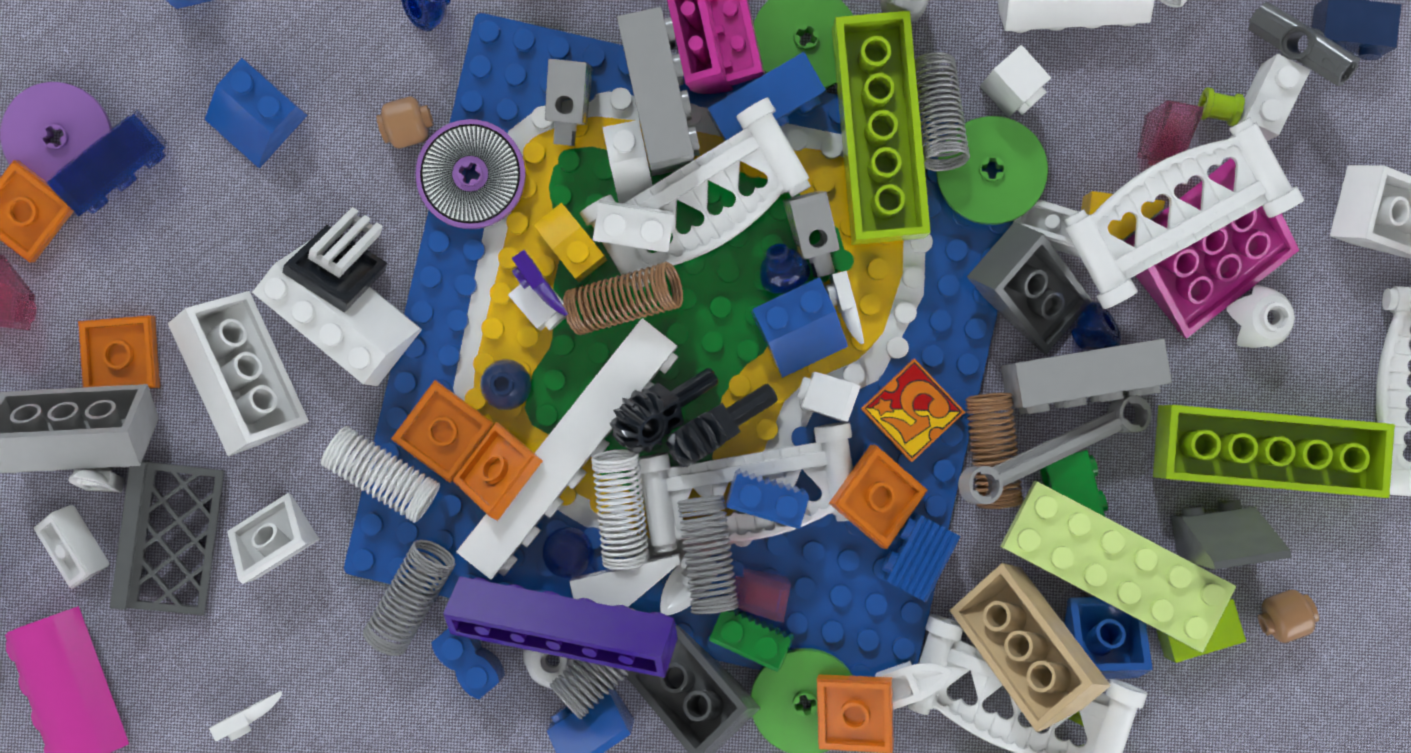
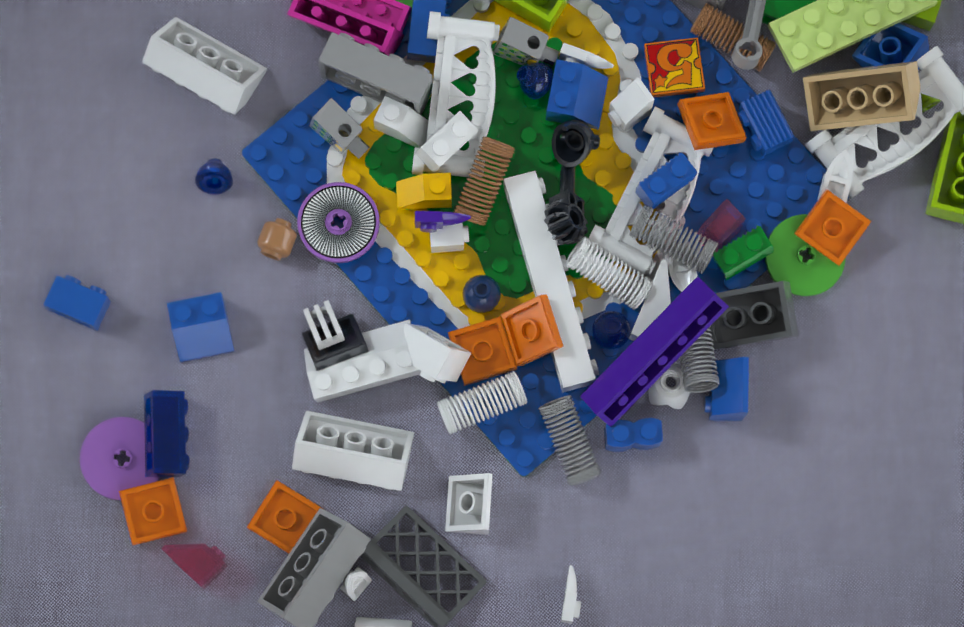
camera: 55 degrees left, 10 degrees down
(390, 384) = (434, 354): none -> white slope
(717, 426) = (601, 185): black gear -> none
(741, 365) = (575, 142): none -> black helmet

